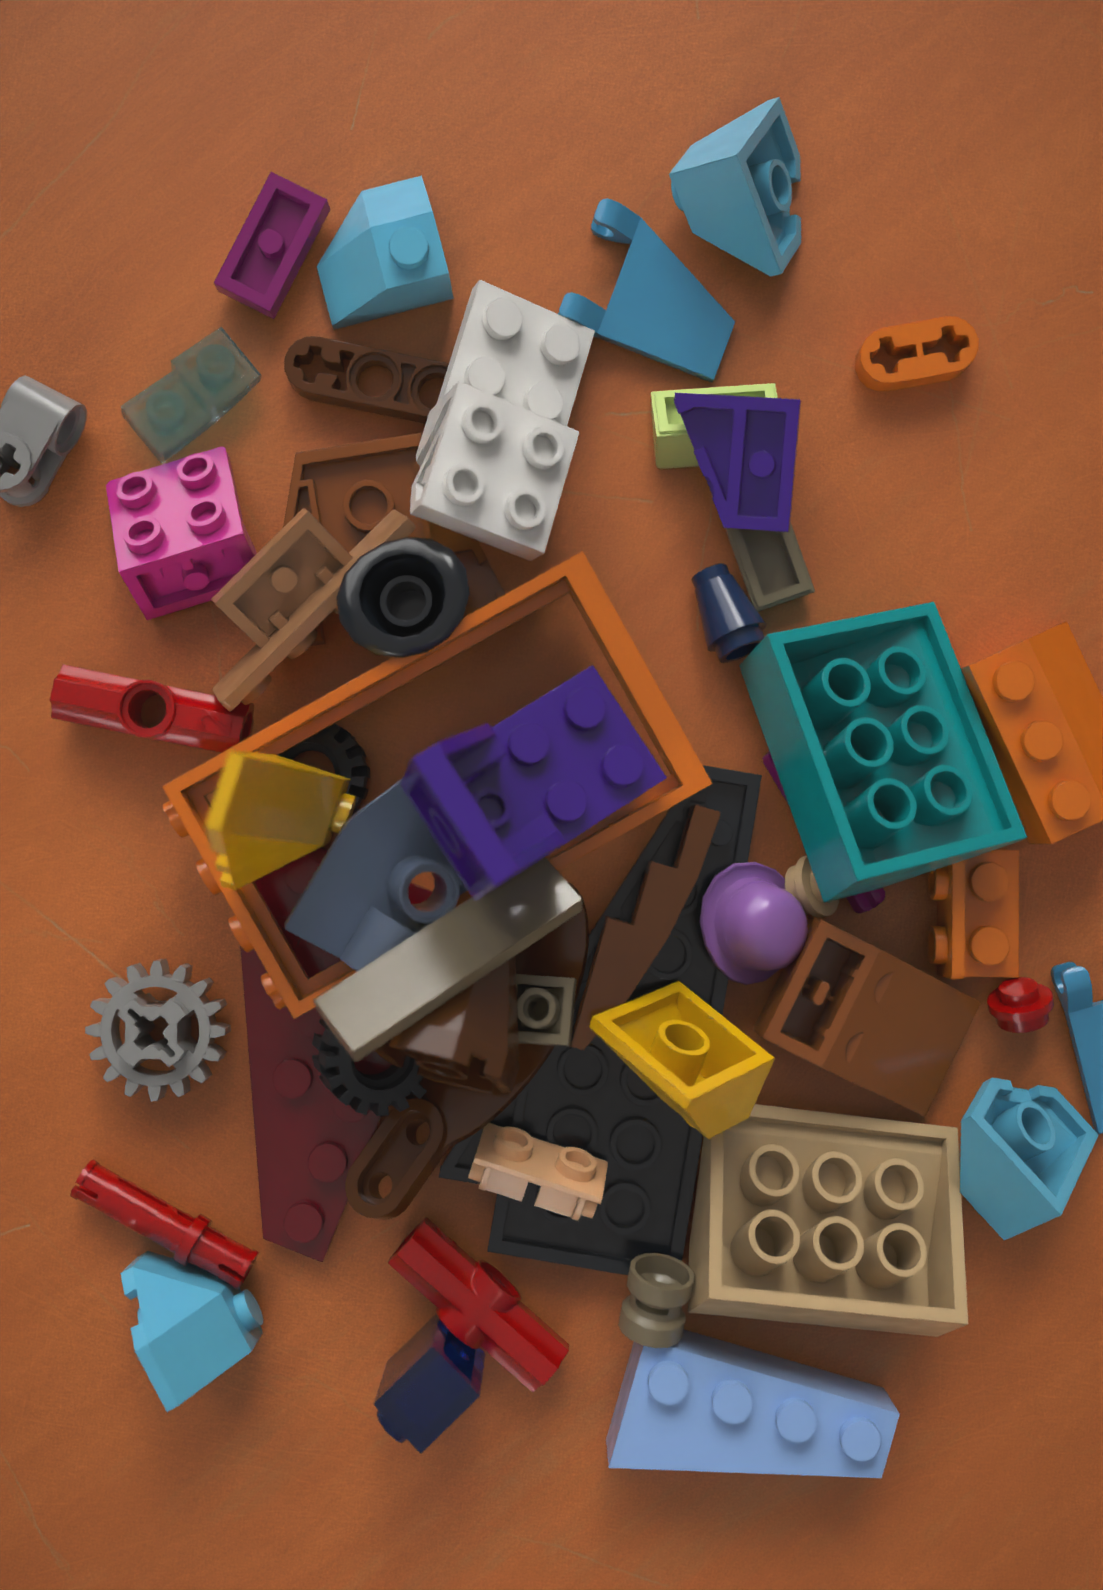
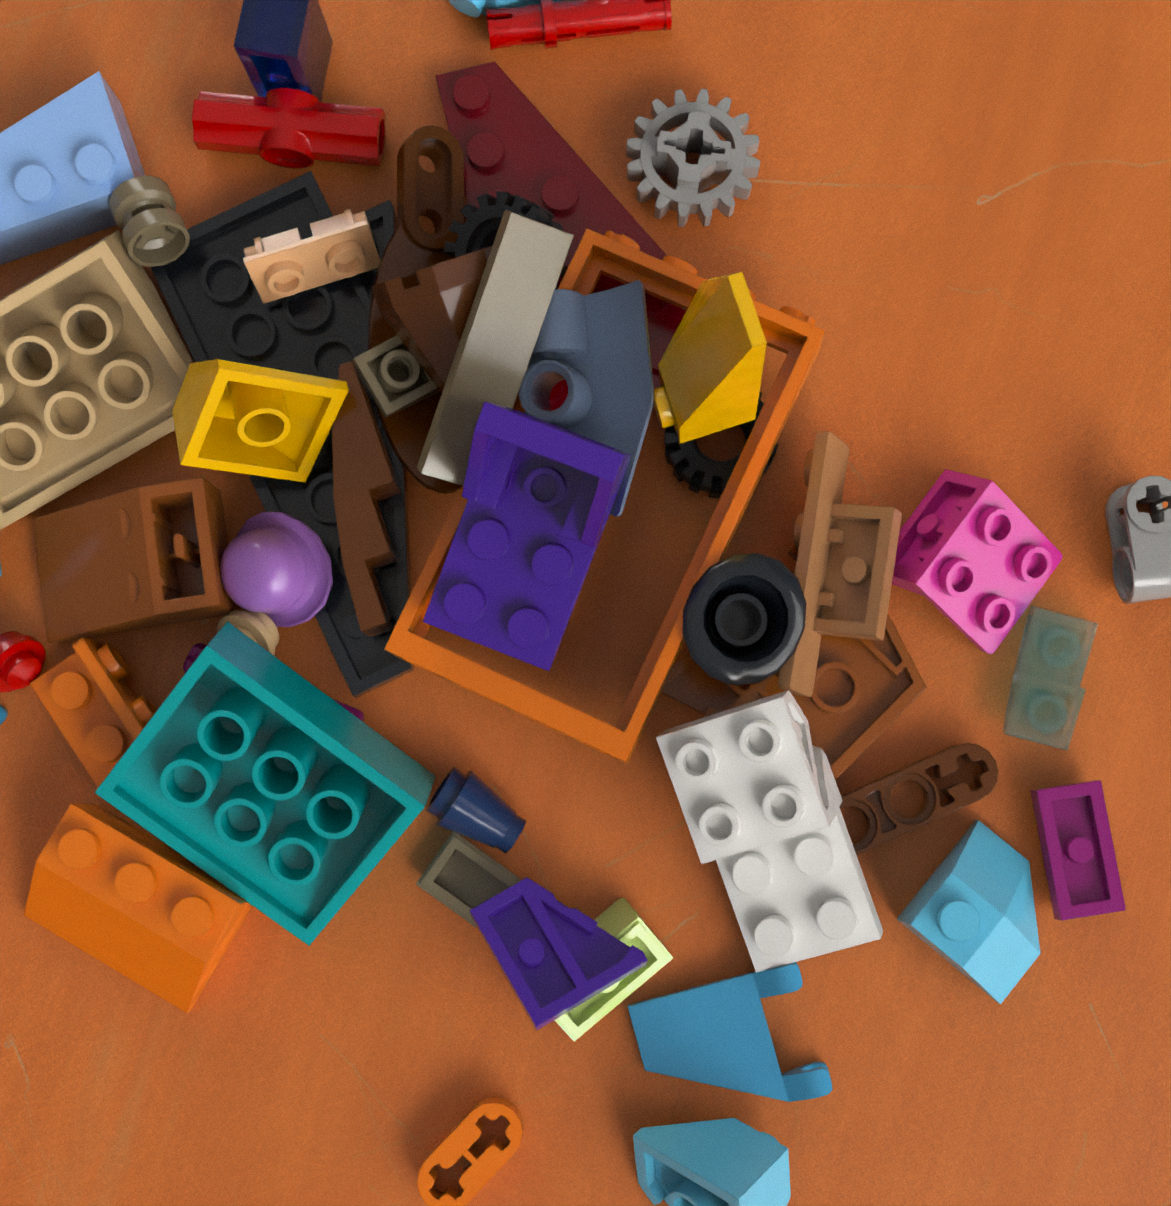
camera: 150 degrees right, 5 degrees down
(116, 705) = (916, 380): red piece -> none

